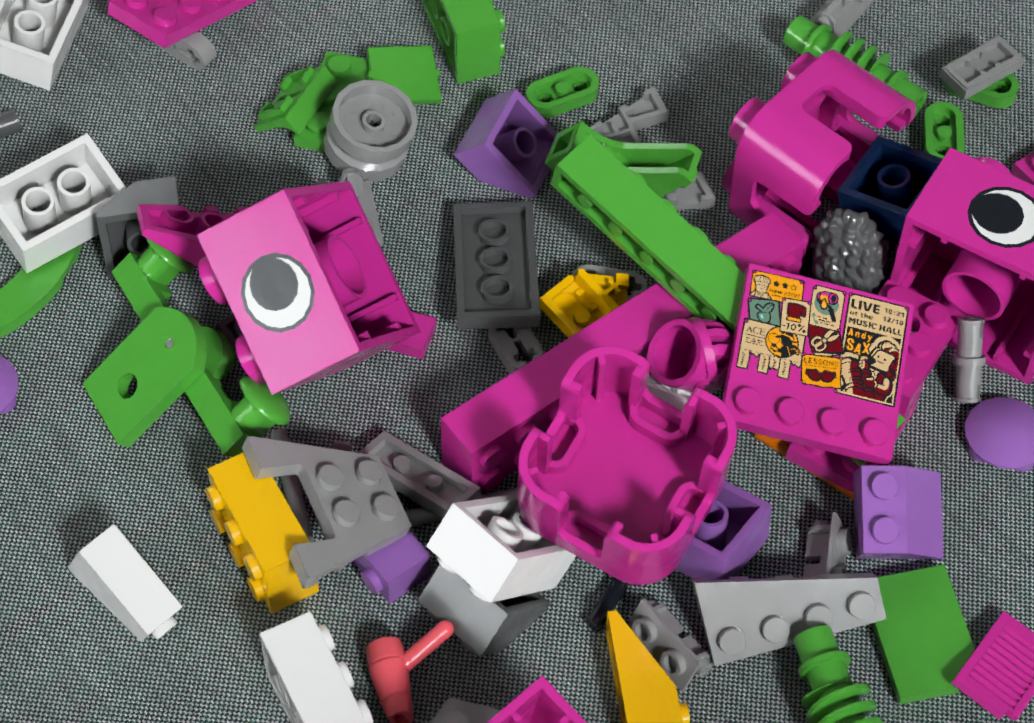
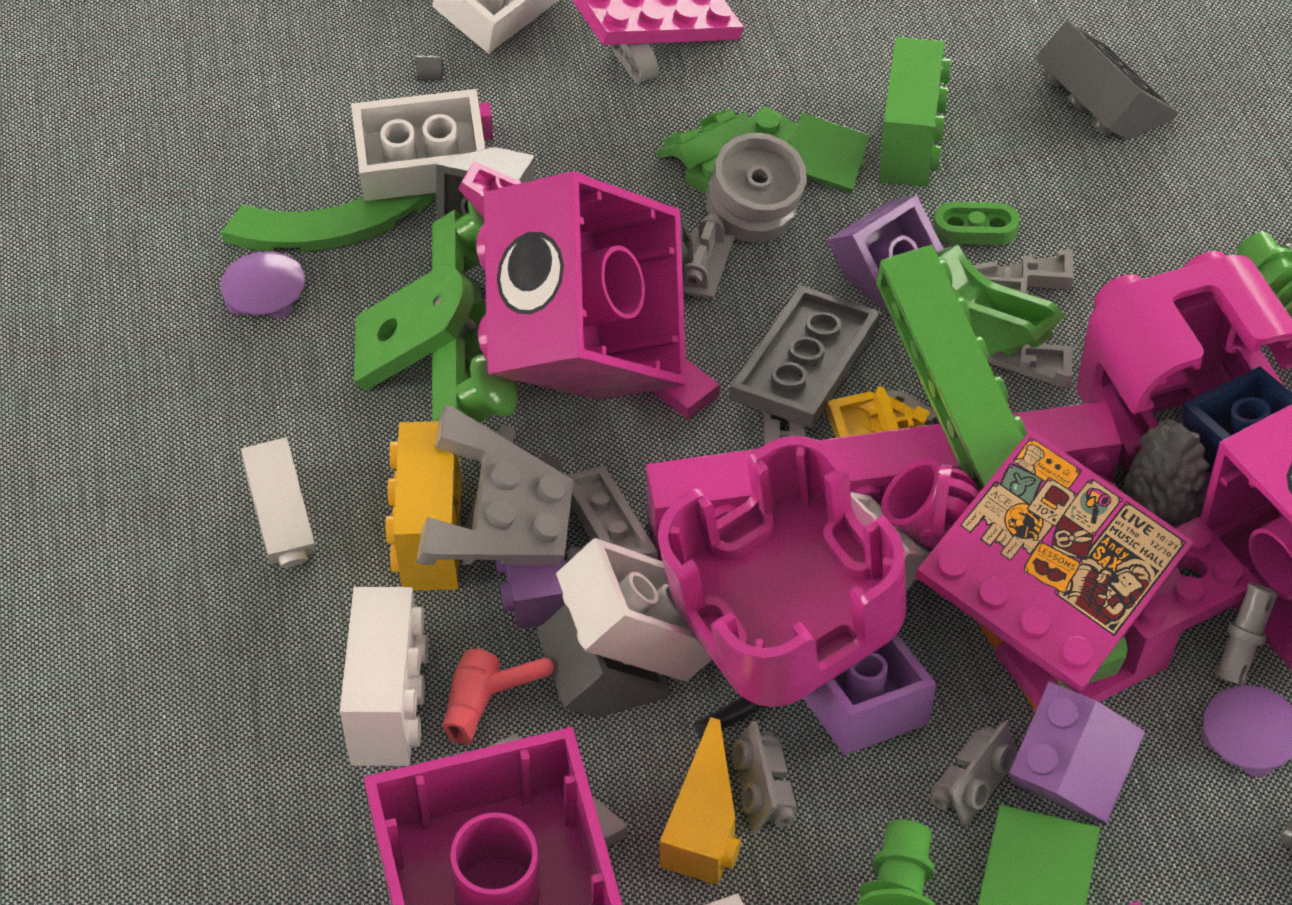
camera: 30 degrees right, 5 degrees down
(766, 614) = (866, 788): light grey wing -> none

